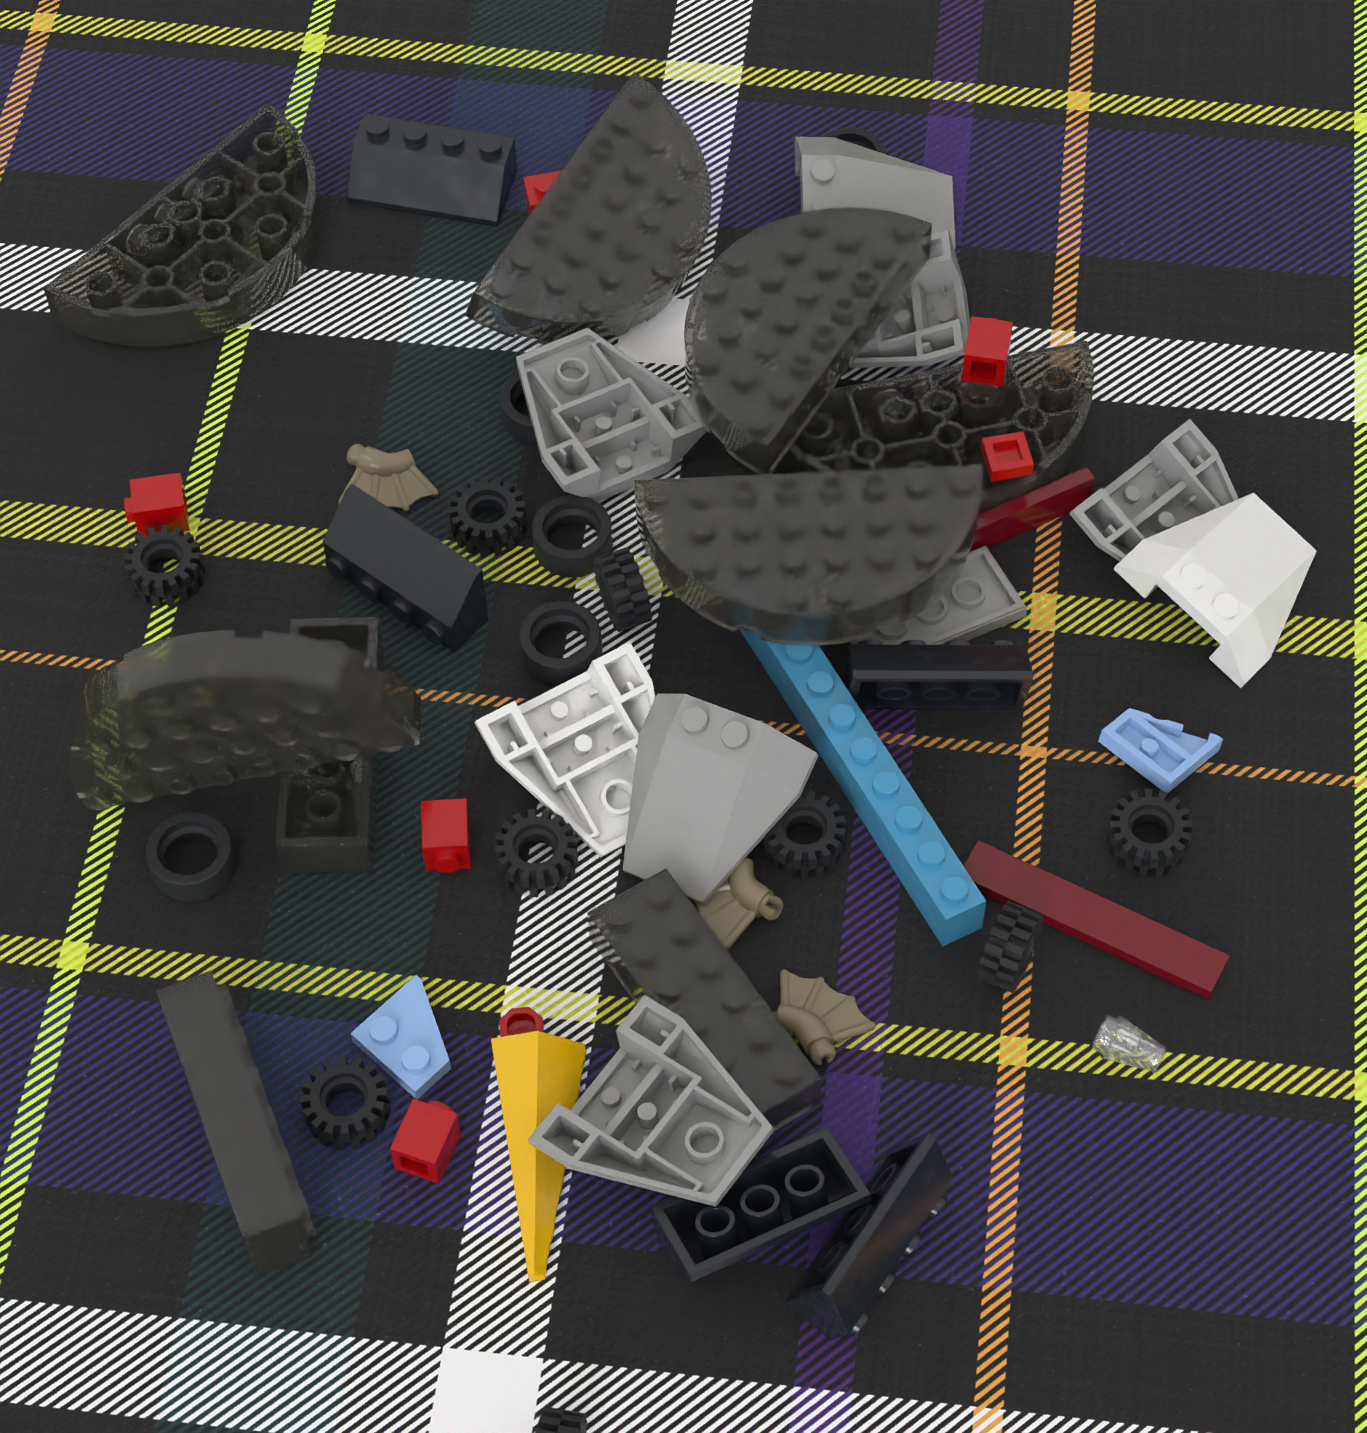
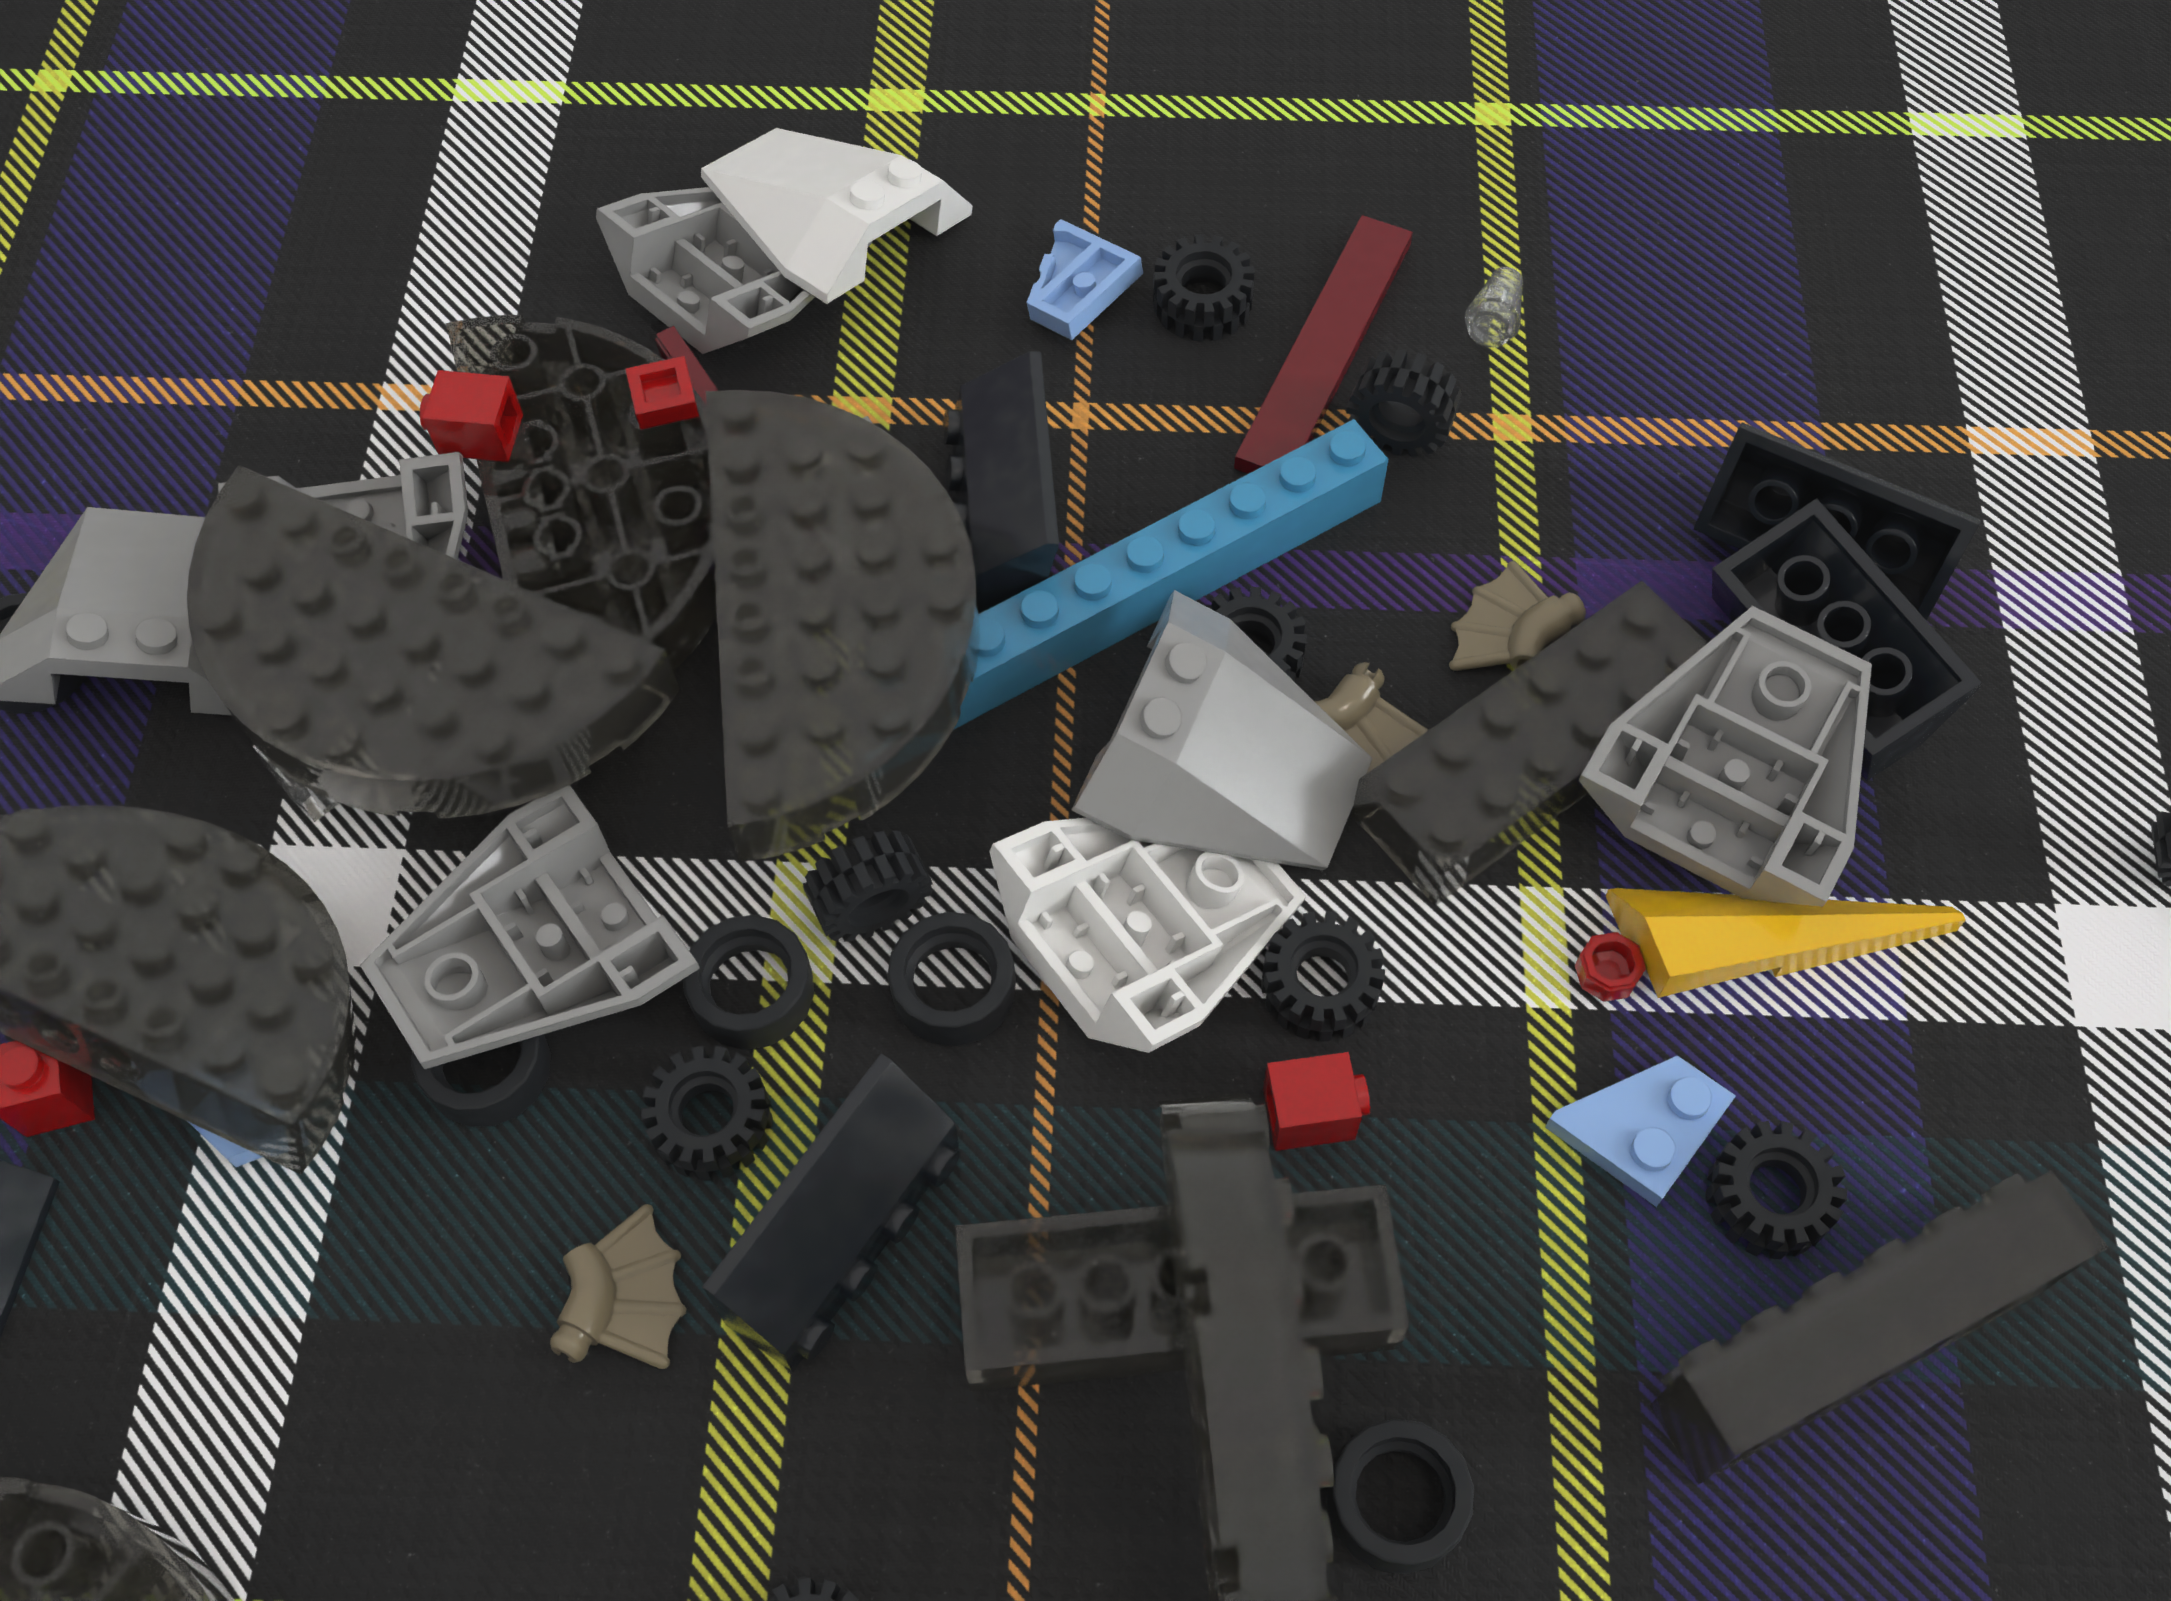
camera: 95 degrees left, 5 degrees up
(426, 1140) = (1811, 1067): red brick -> none

